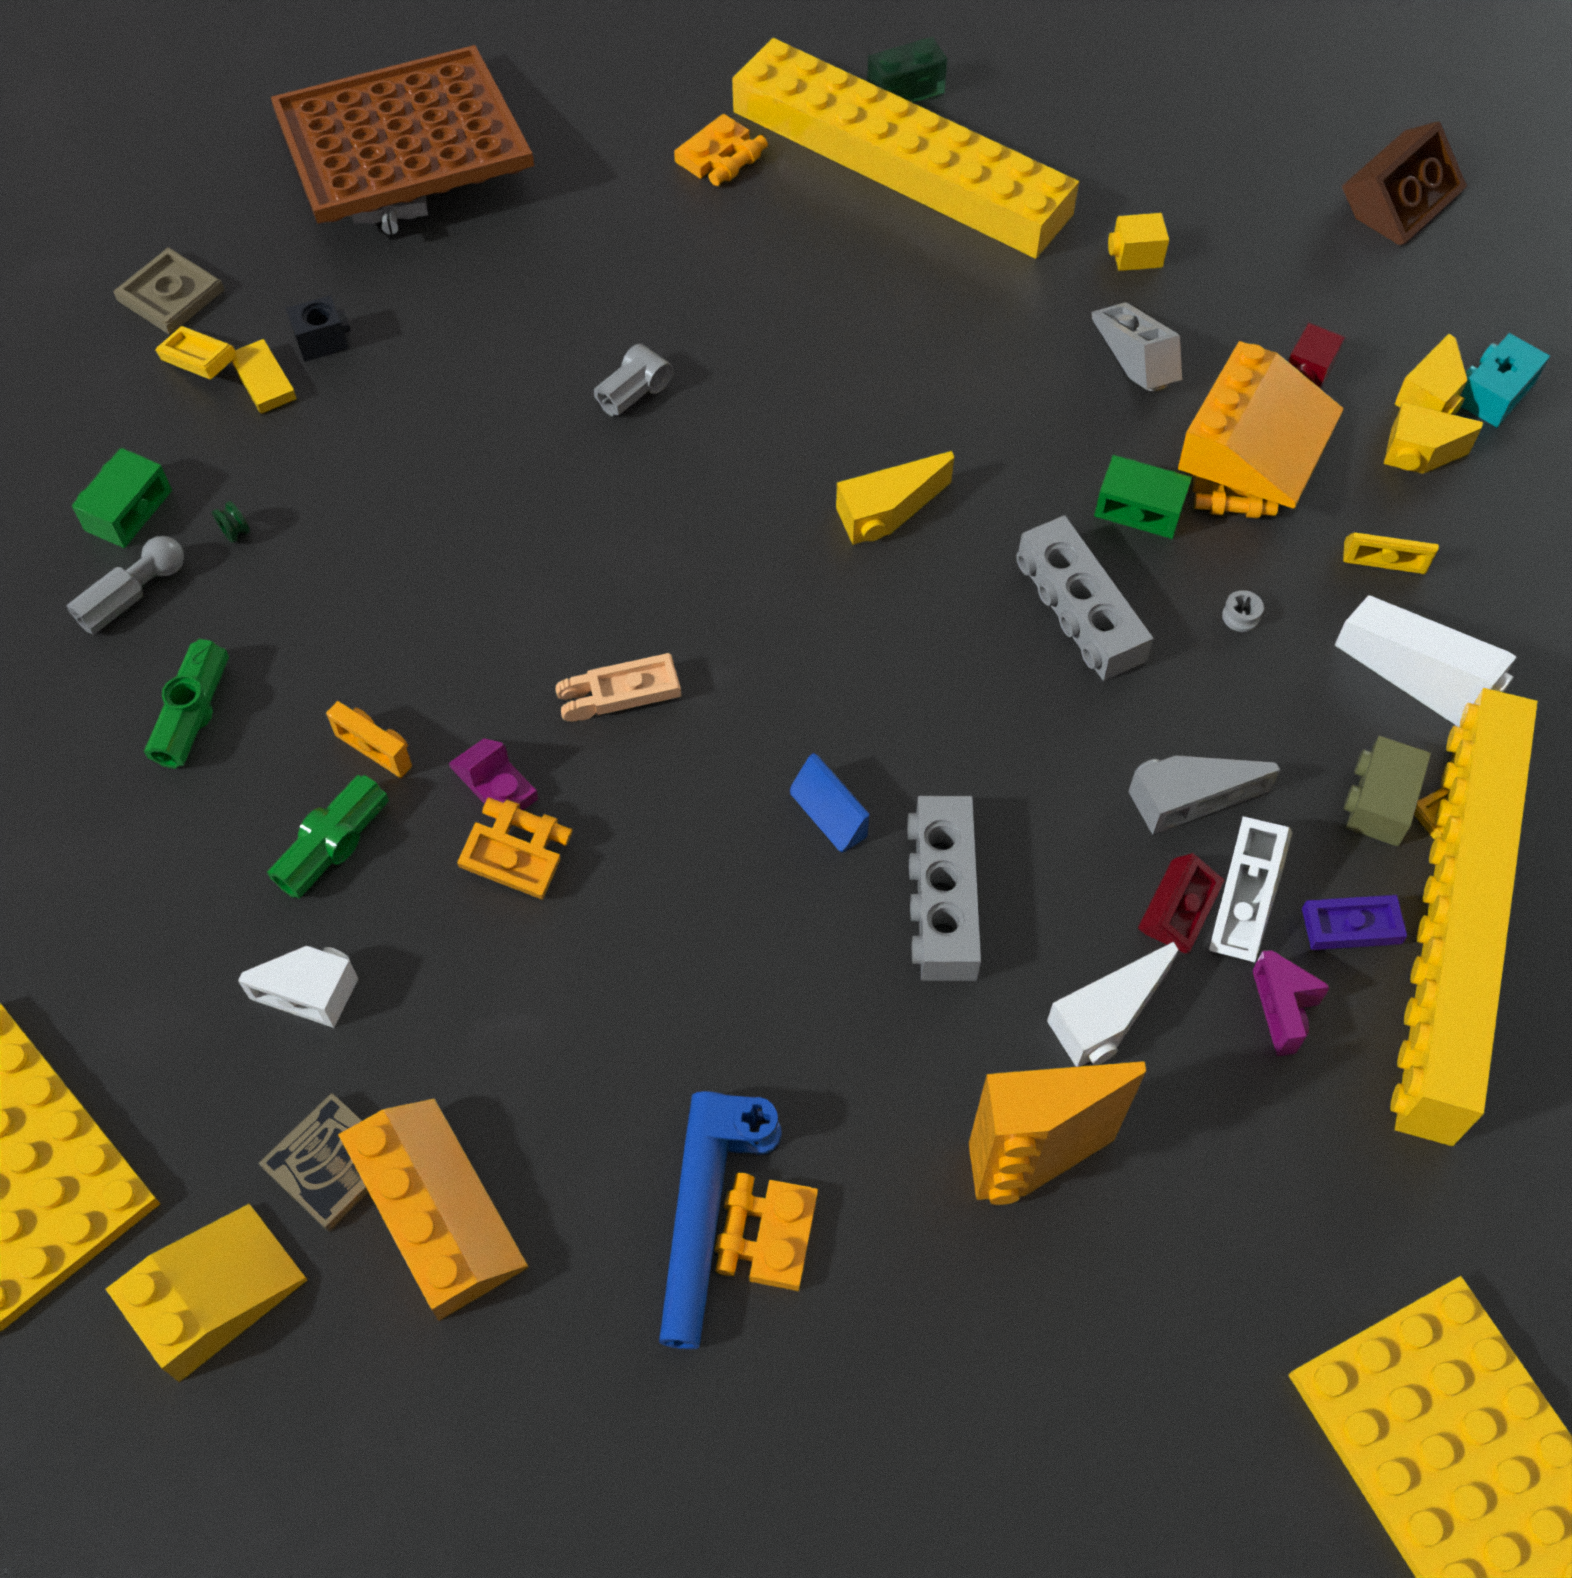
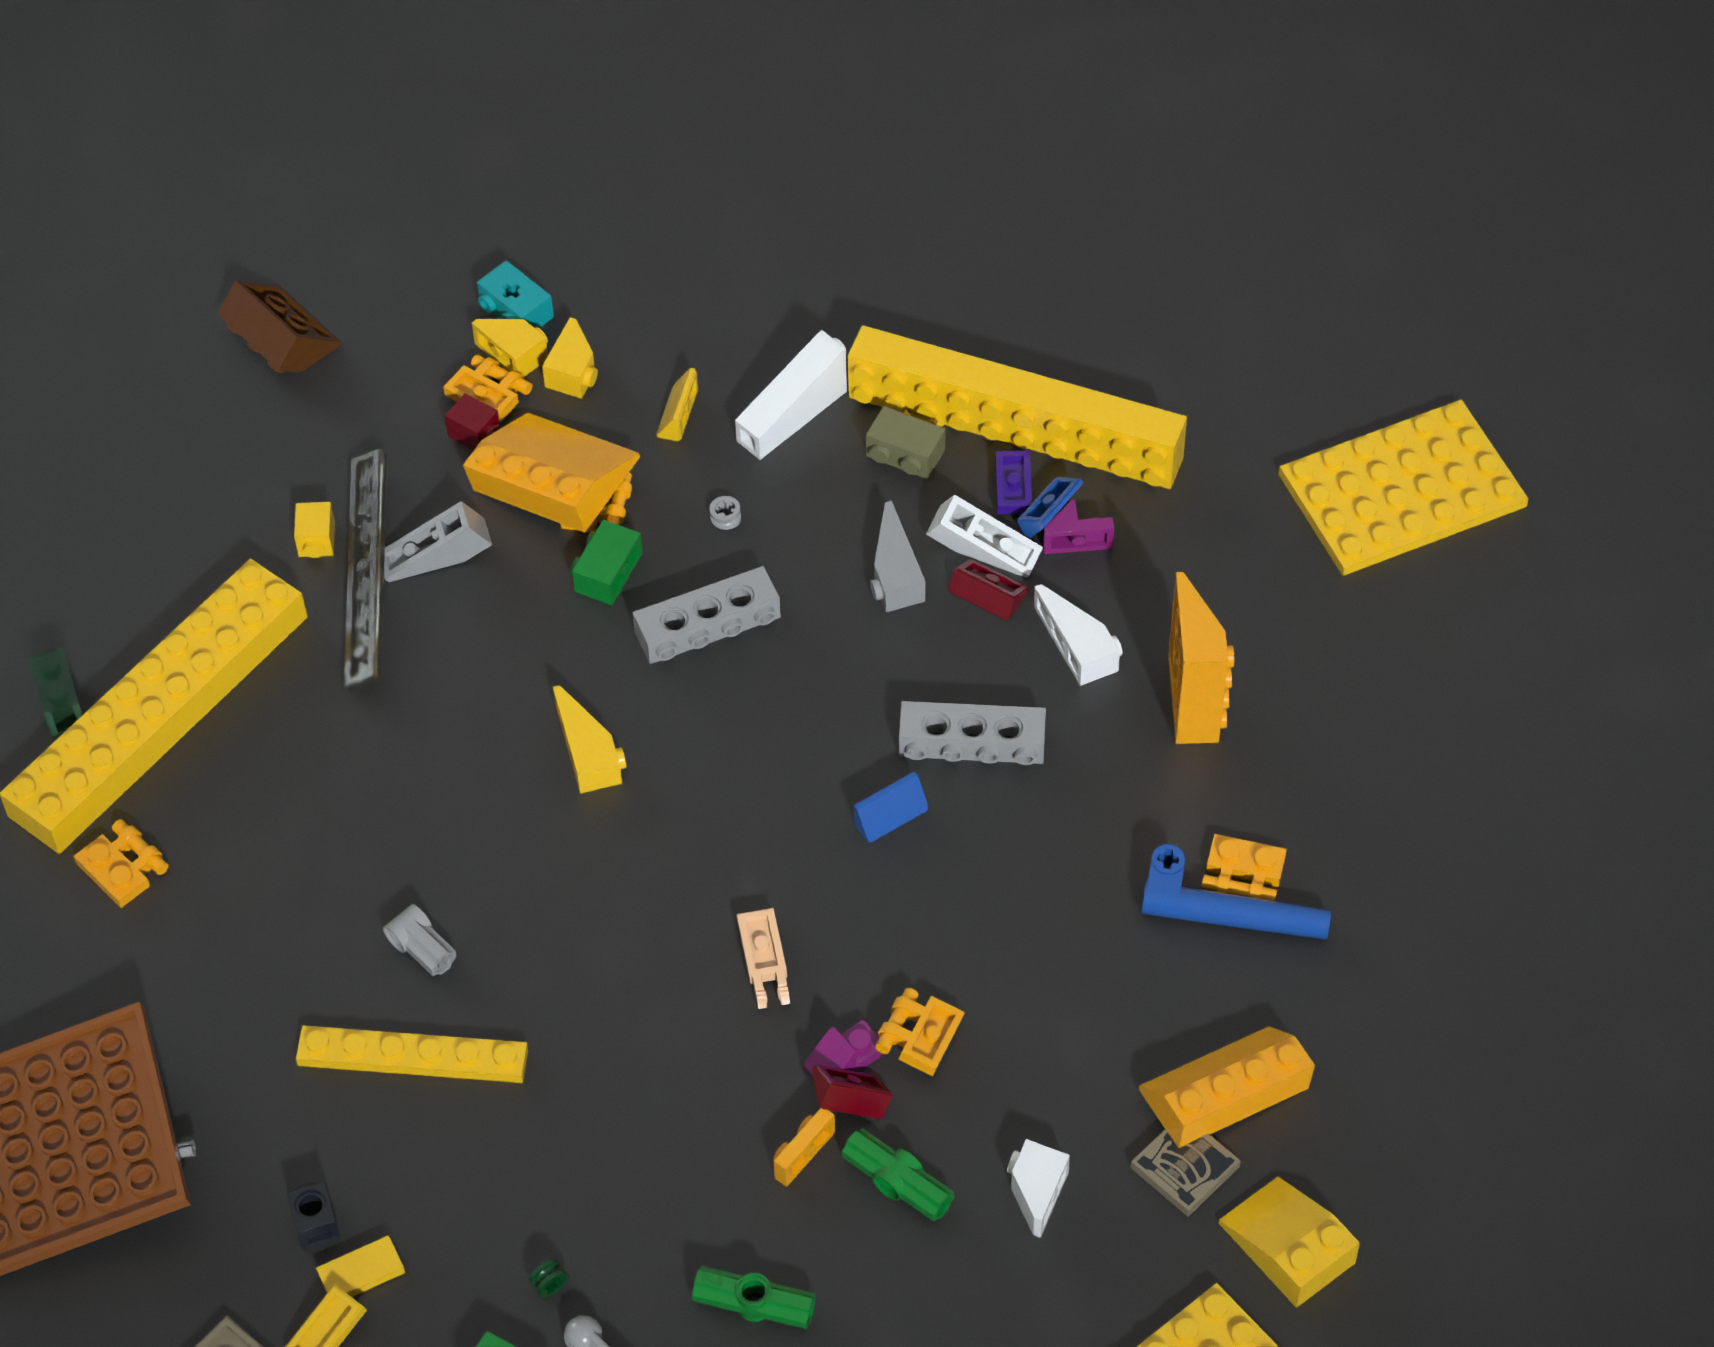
camera: 85 degrees left, 5 degrees down
(432, 776) = (850, 1092): none -> dark red slope
(503, 395) = (412, 1054): none -> yellow plate
(1110, 288) = (365, 571): none -> clear smoke plate
(1320, 959) = (1048, 505): none -> blue slope
(1358, 364) = (481, 387): none -> light orange plate

